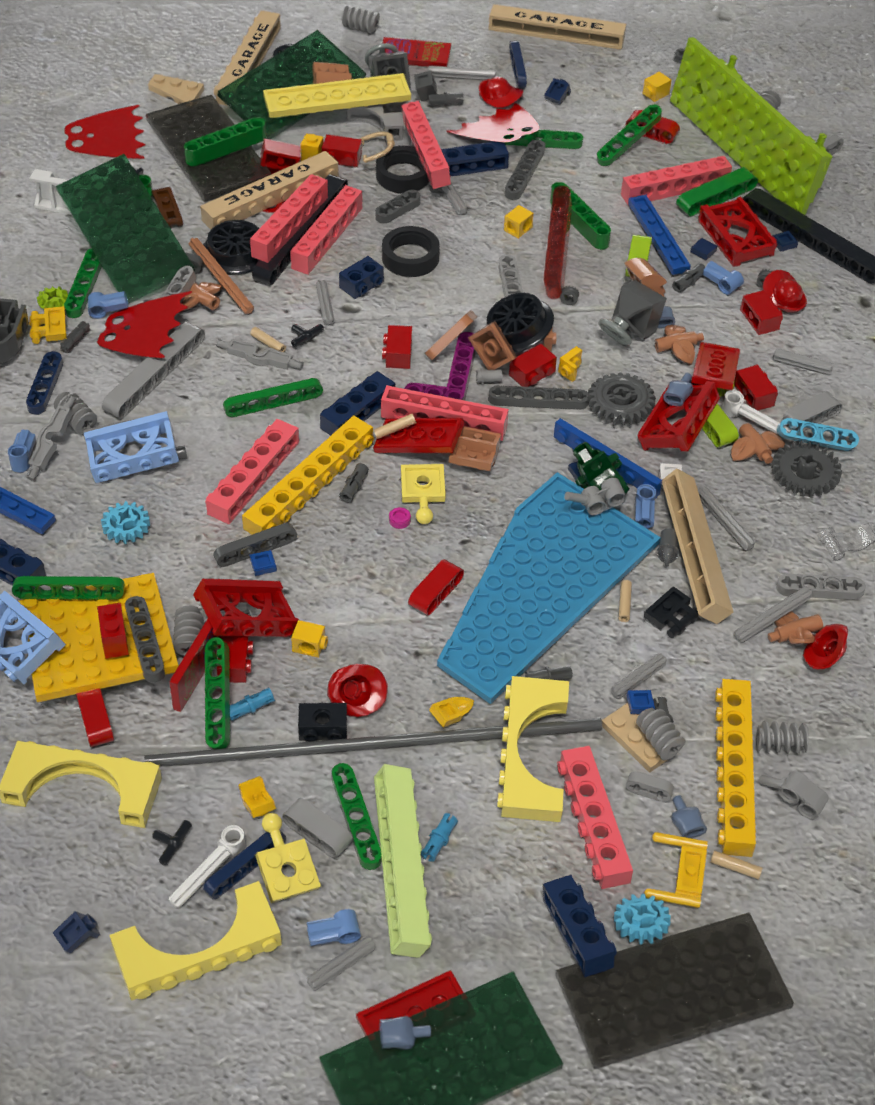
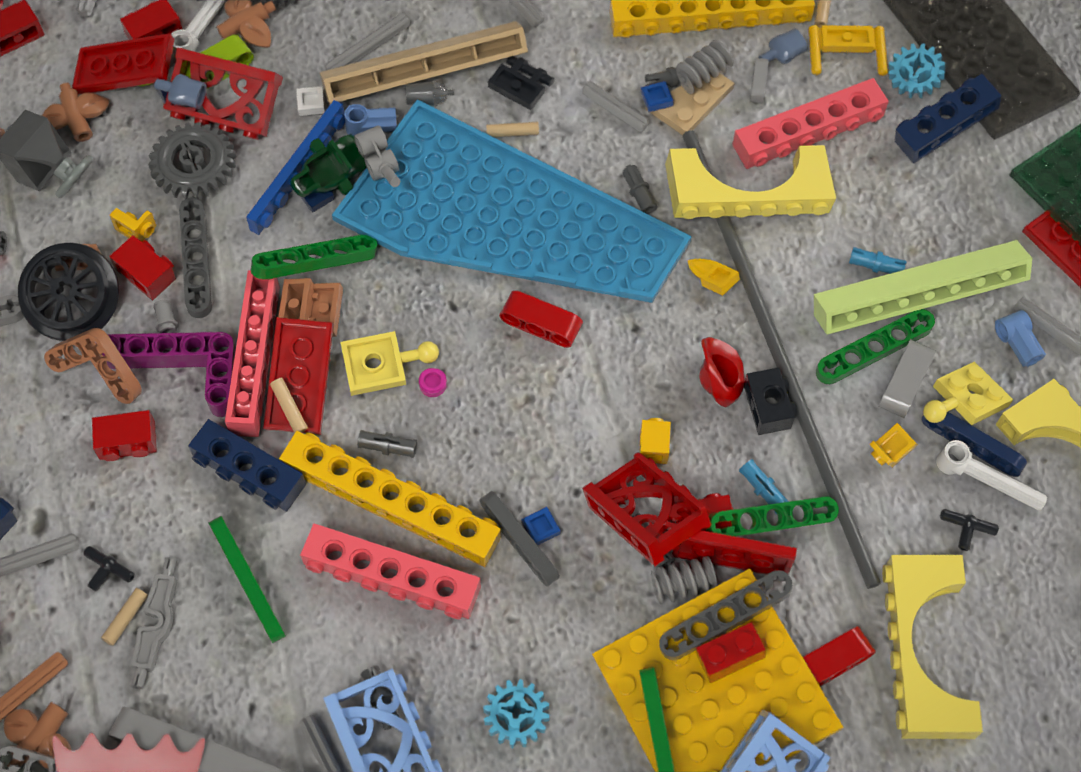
camera: 100 degrees left, 15 degrees up
(492, 346) = (127, 306): nougat slope -> none
(518, 442) = (271, 263): none -> green beam

